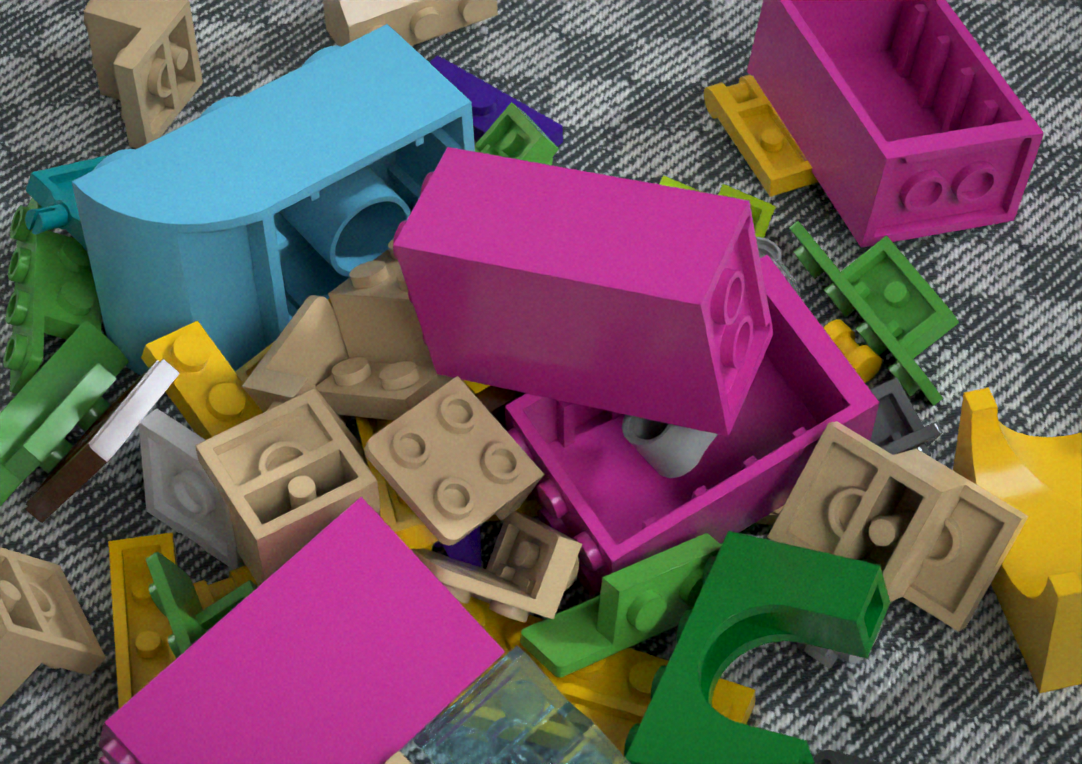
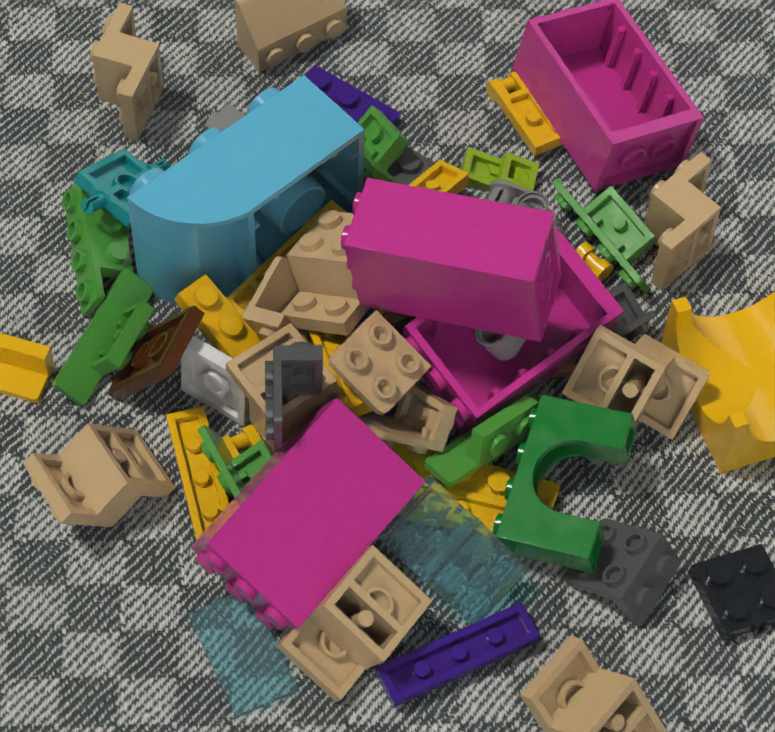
camera: 10 degrees left, 10 degrees up
(286, 454) = (294, 371): none -> dark grey bracket
(999, 289) = (681, 220): none -> tan bracket

